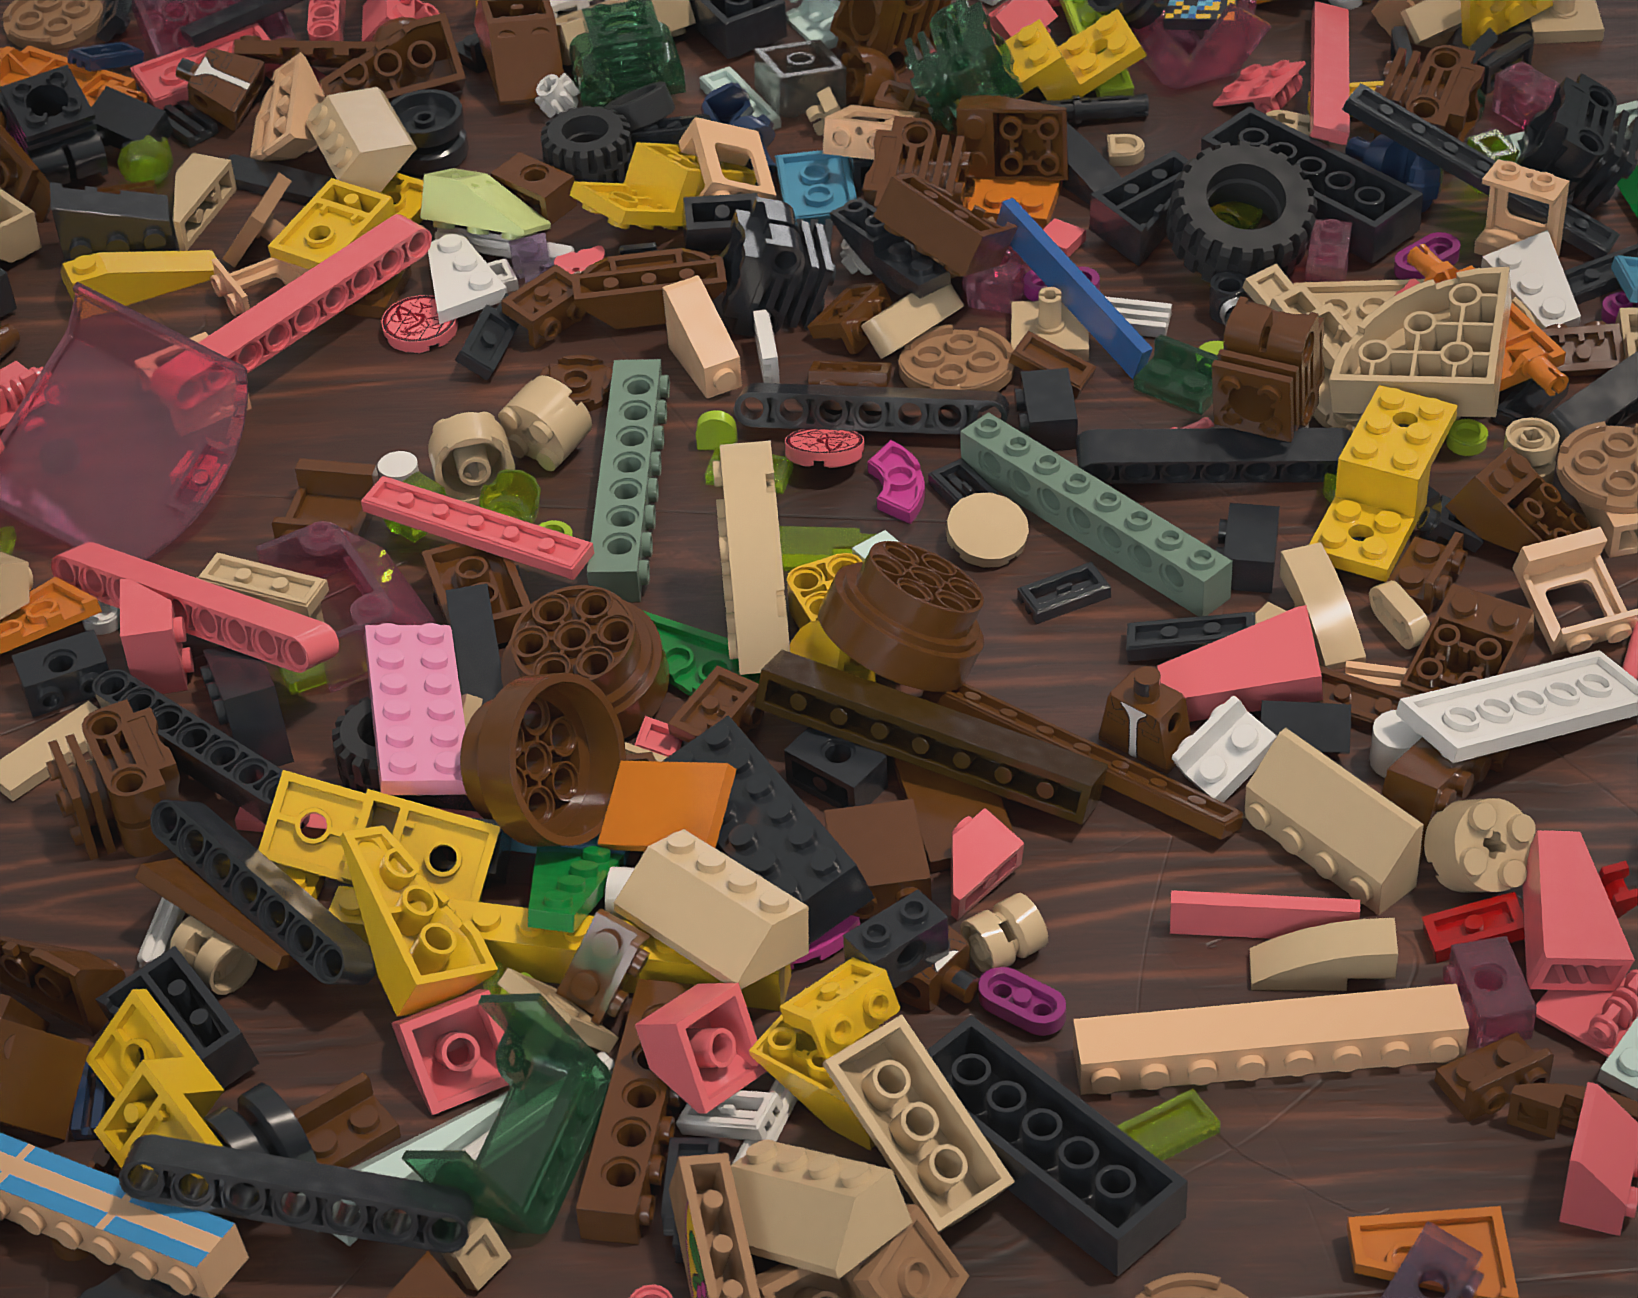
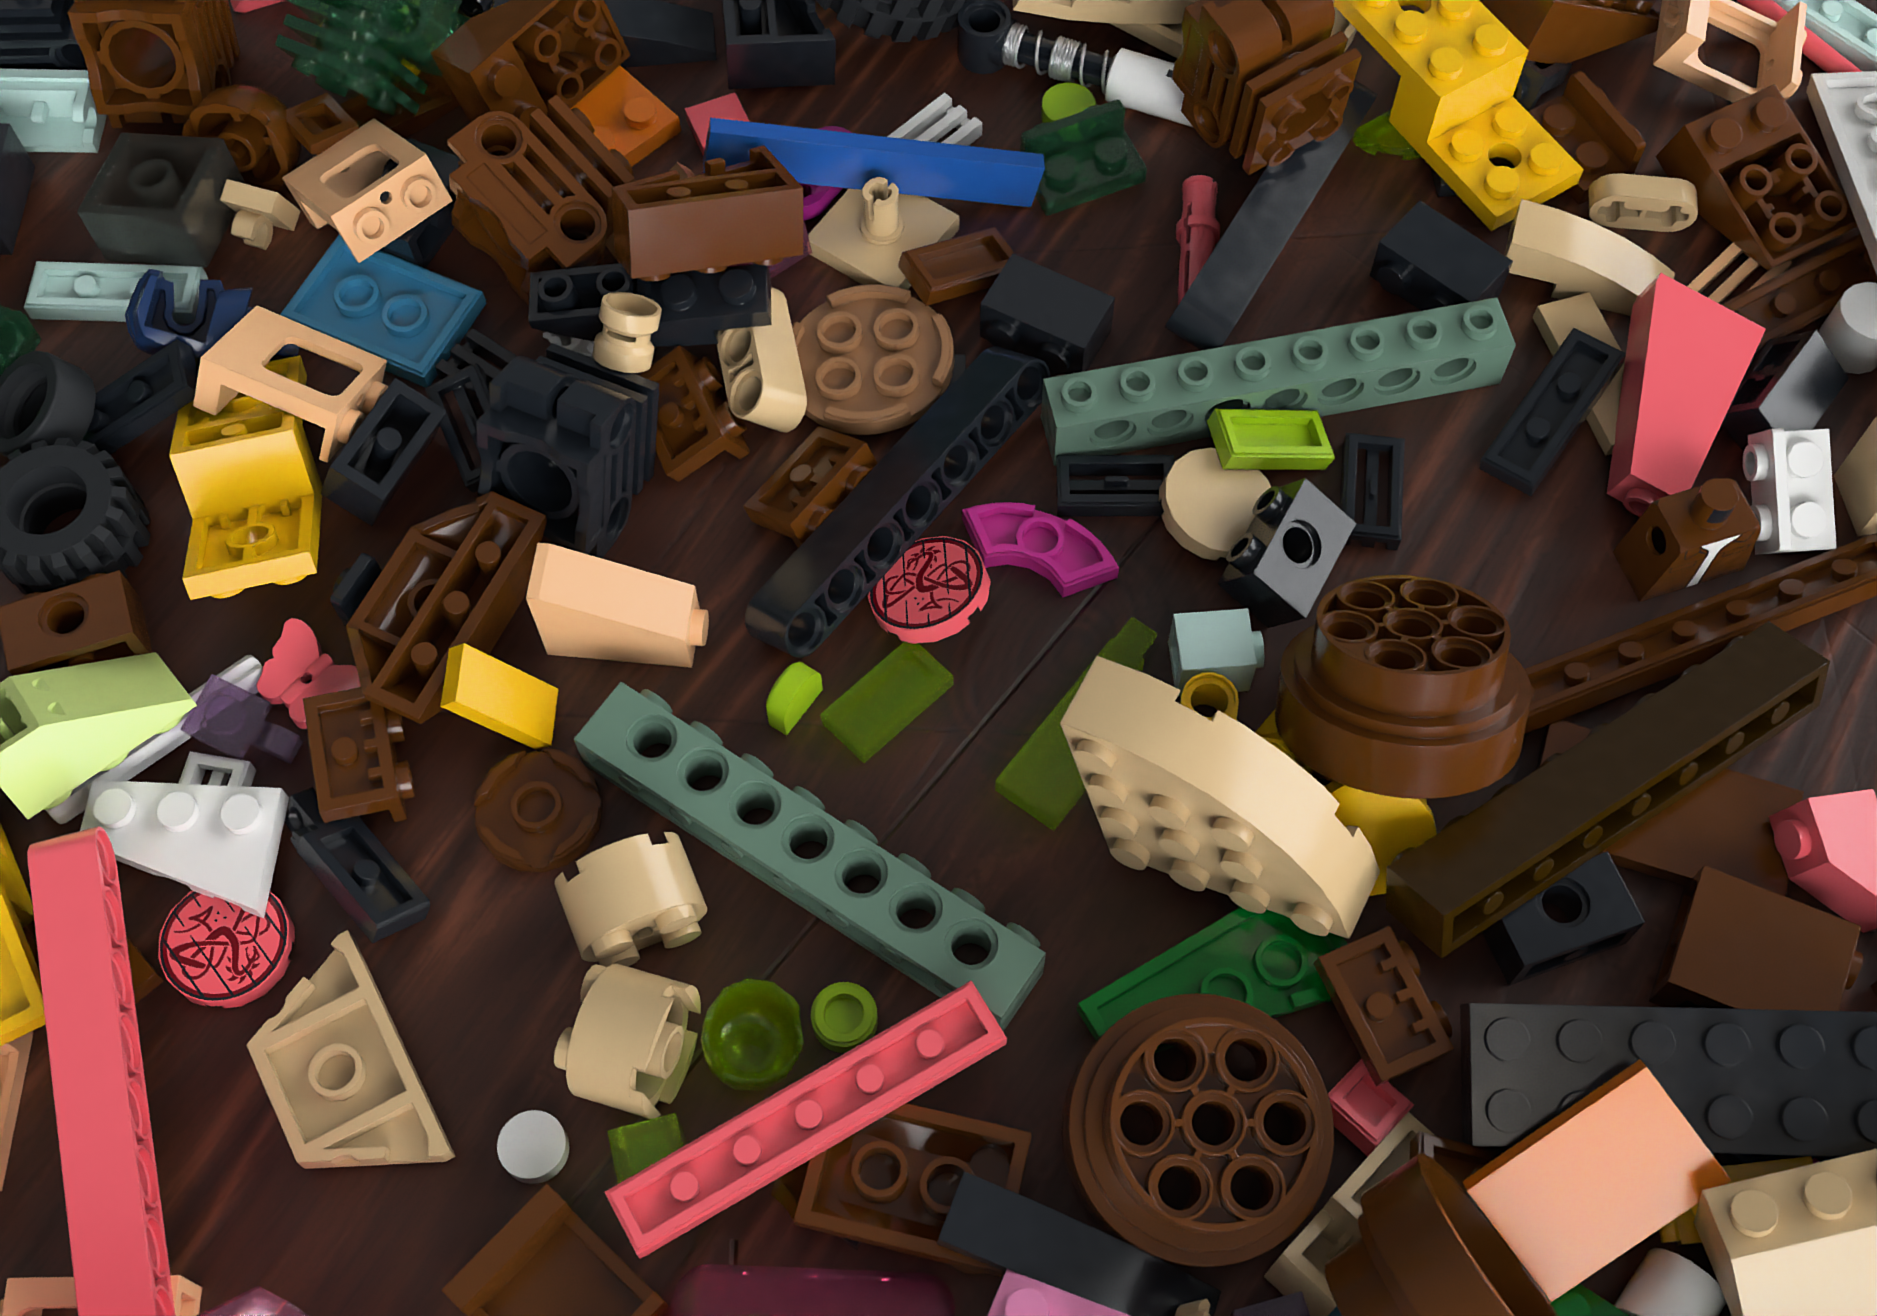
camera: 60 degrees left, 20 degrees up
(386, 389) = (344, 1073): none -> tan wing
(616, 325) = (499, 697): none -> yellow tile
(766, 347) = (676, 545): white tile -> none
(850, 240) = (626, 332): none -> tan wheel
(993, 543) = (1286, 553): none -> black brick
(1051, 530) = (1270, 439): none -> lime tile

